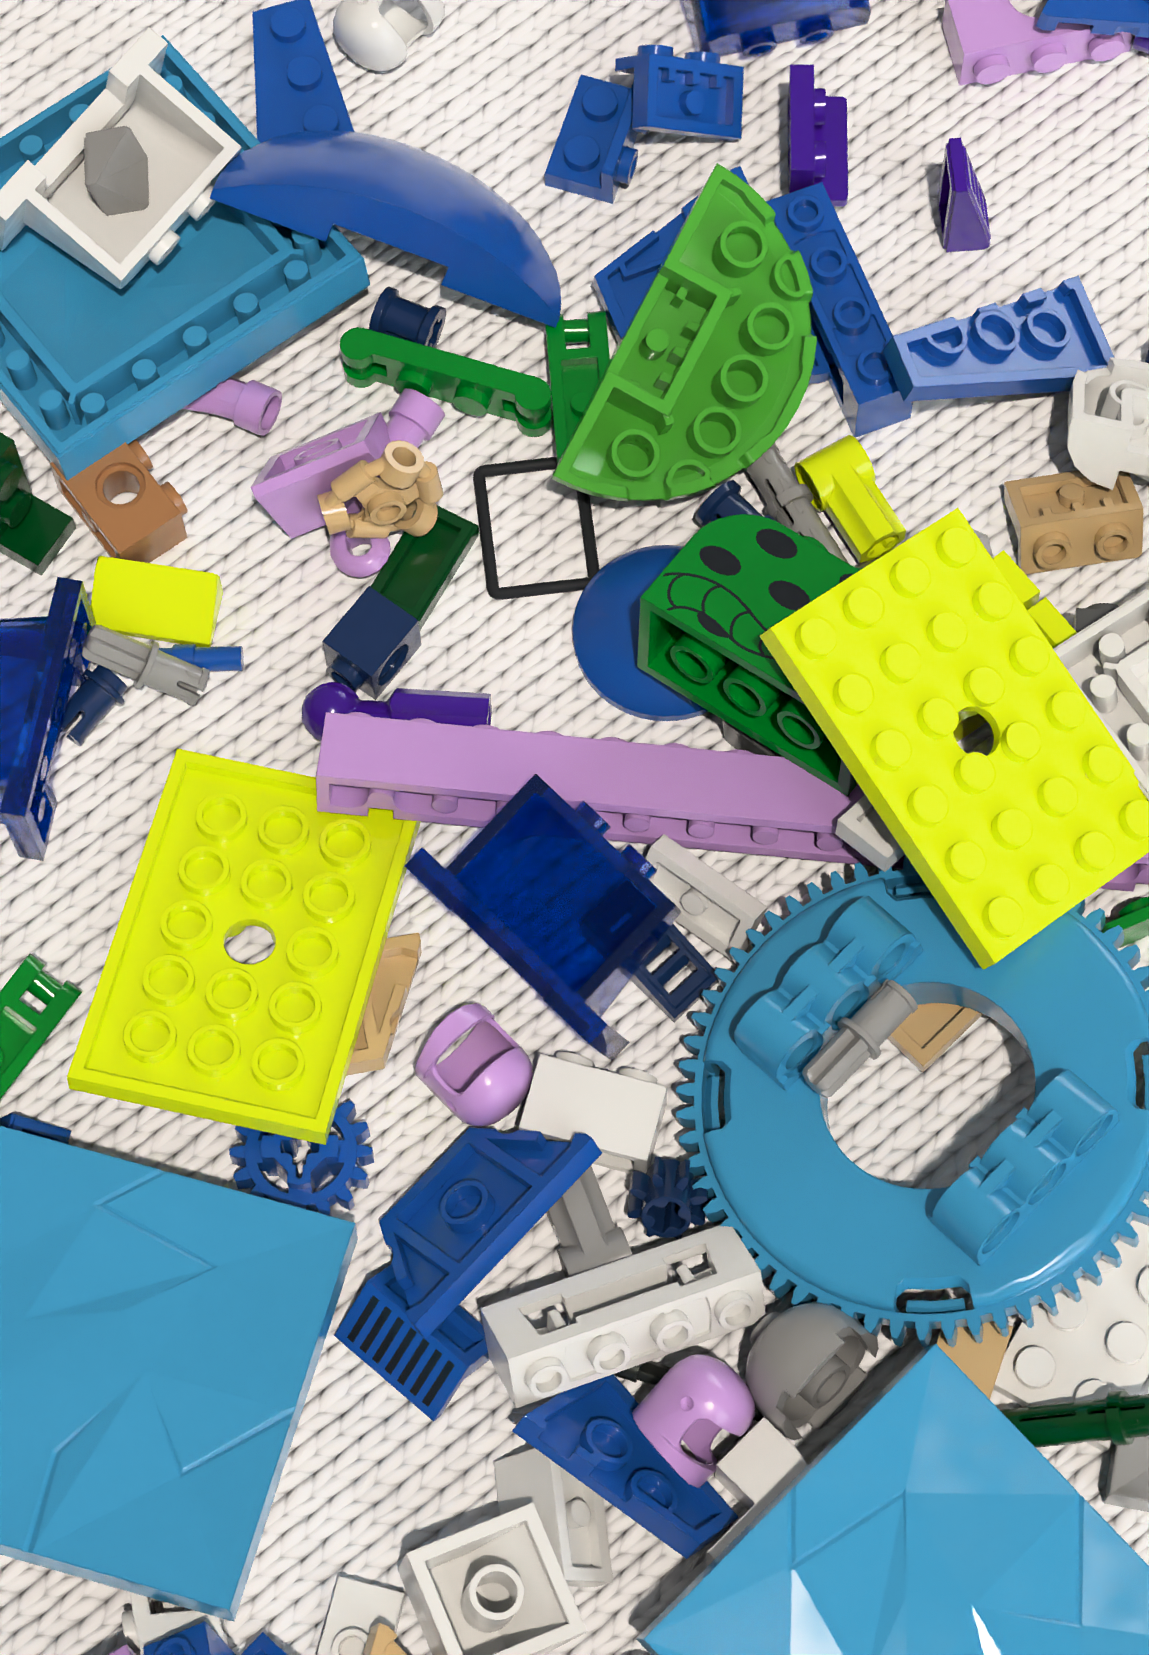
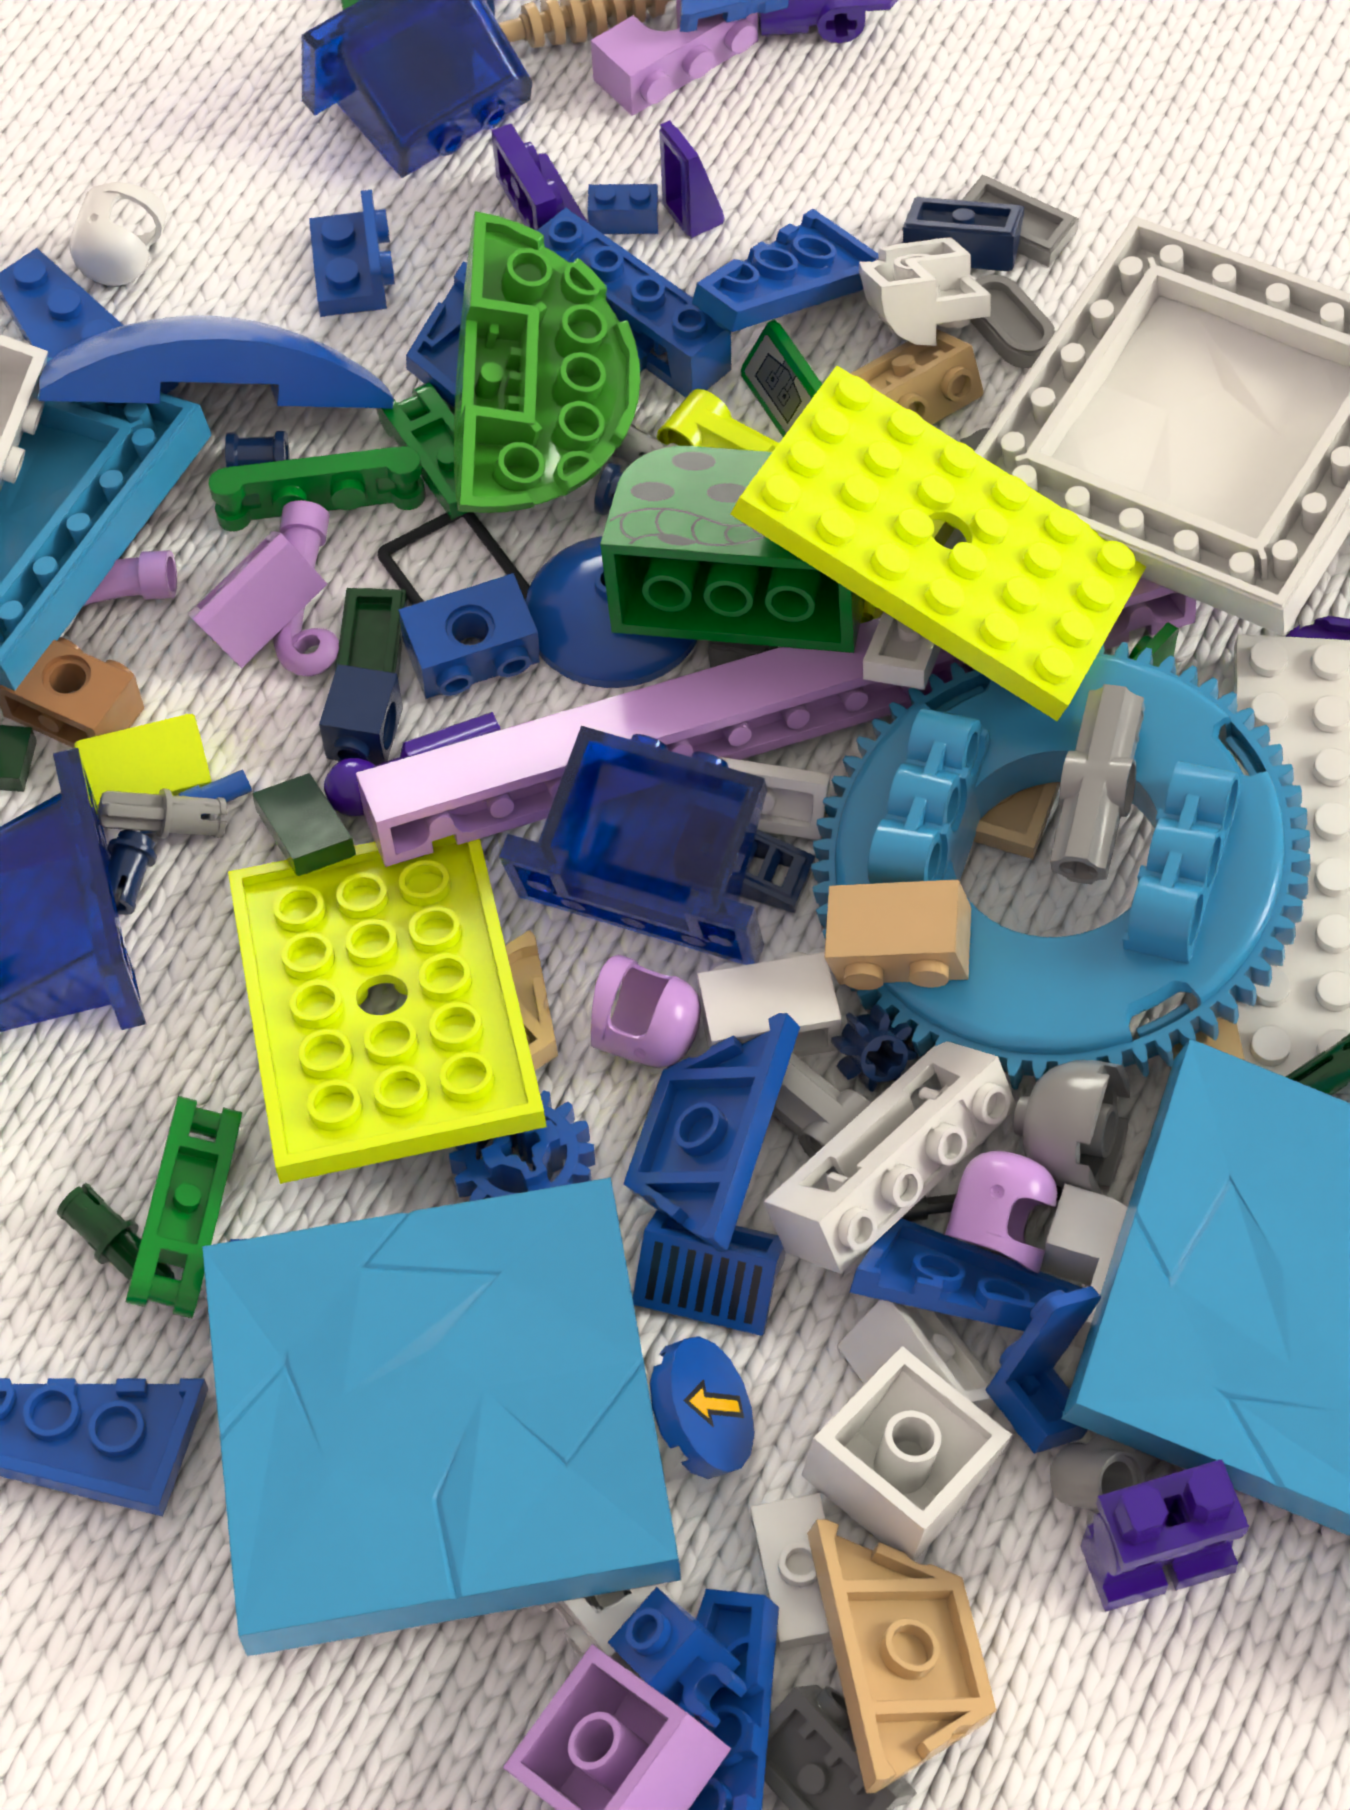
camera: 25 degrees left, 10 degrees down
(266, 732) = (304, 824): none -> tile
(336, 1471) = (702, 1407): none -> blue tile
(386, 501) = (317, 585): tan piece -> none
(483, 583) = (483, 611): none -> blue brick
(639, 1586) = (1027, 1384): none -> blue bracket
(685, 94) = (409, 190): blue bracket -> none
(732, 1109) = (898, 933): none -> tan brick
(859, 1038) = (980, 824): light grey axle -> none
(891, 194) = (623, 208): none -> blue piece
(946, 462) = (779, 376): none -> slope
(986, 1052) = (1097, 784): none -> light grey piece

